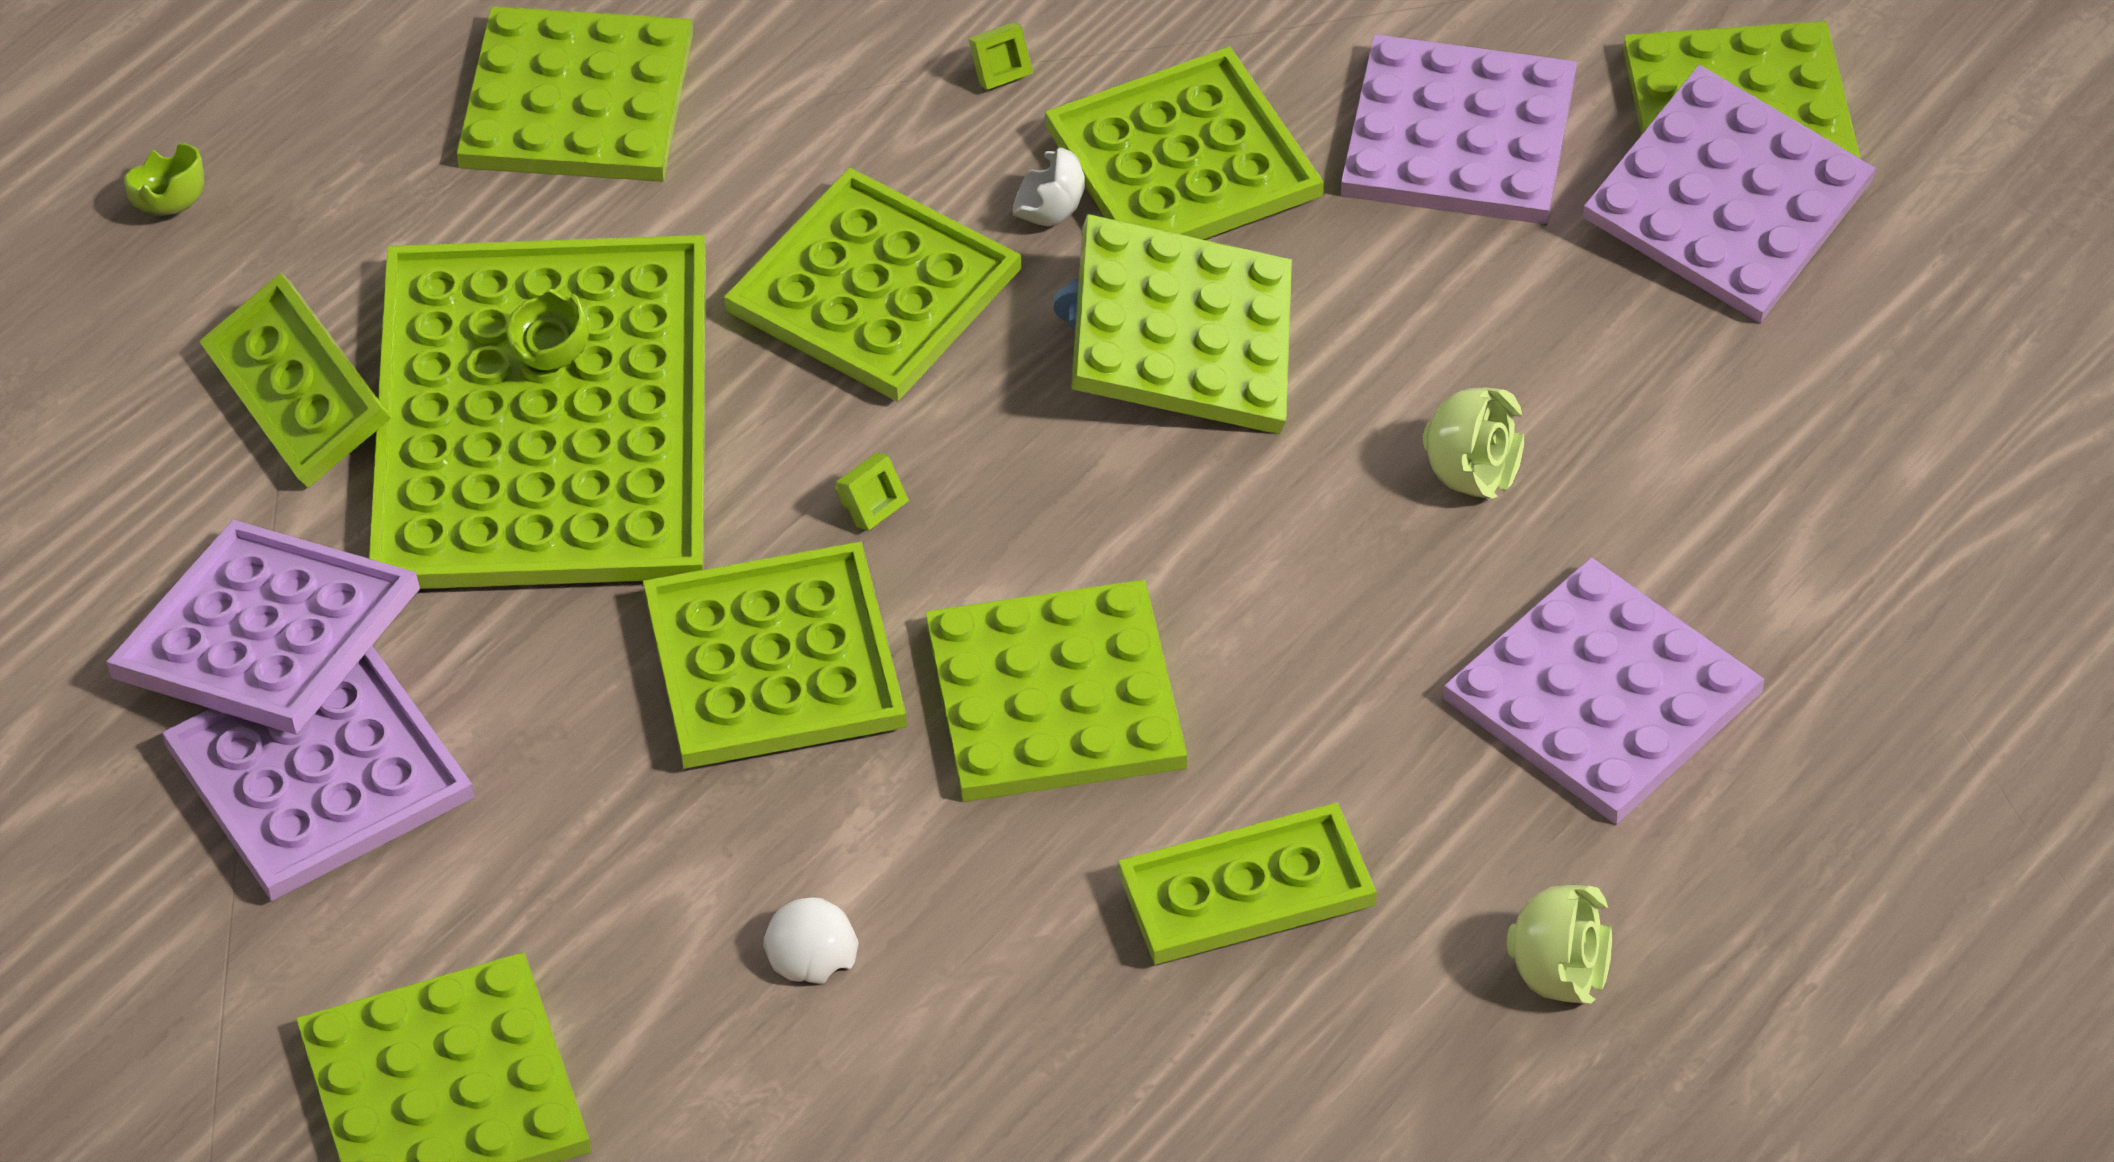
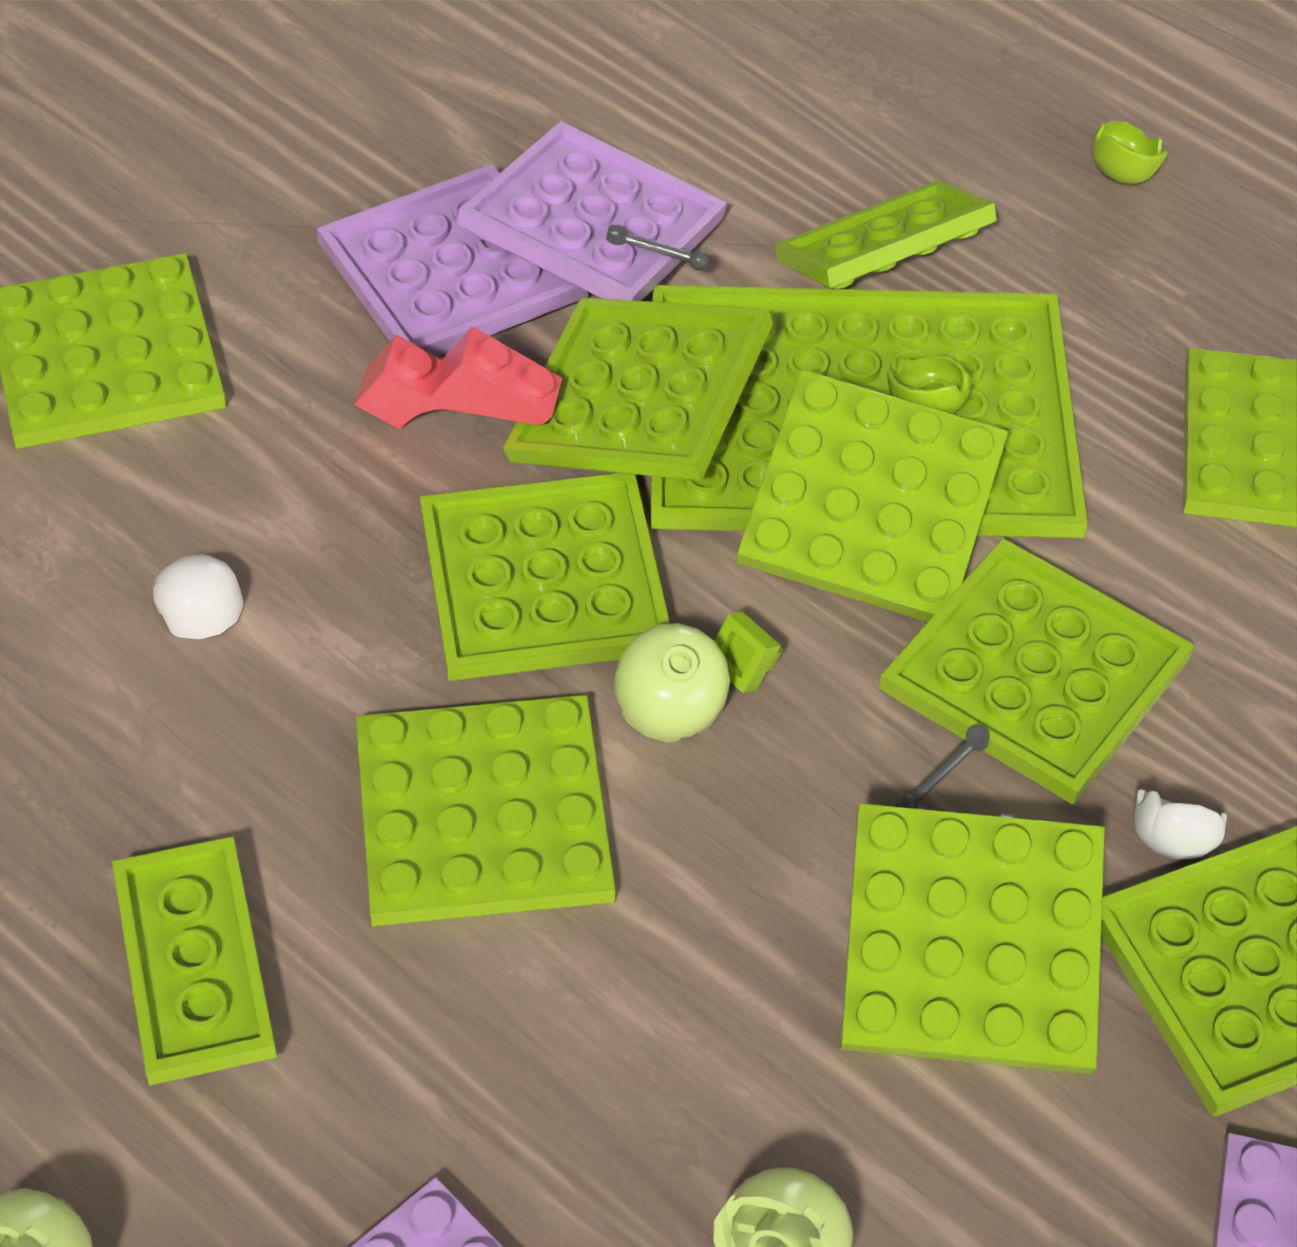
camera: 90 degrees right, 0 degrees up
(317, 589) = (619, 235): none -> dark grey hinge
(536, 716) = (471, 378): none -> coral arch
(541, 568) = (644, 387): none -> lime plate
(684, 384) = (872, 497): none -> lime plate
(916, 537) = (671, 682): none -> yellowish green cylinder
(969, 320) = (976, 740): none -> dark grey hinge

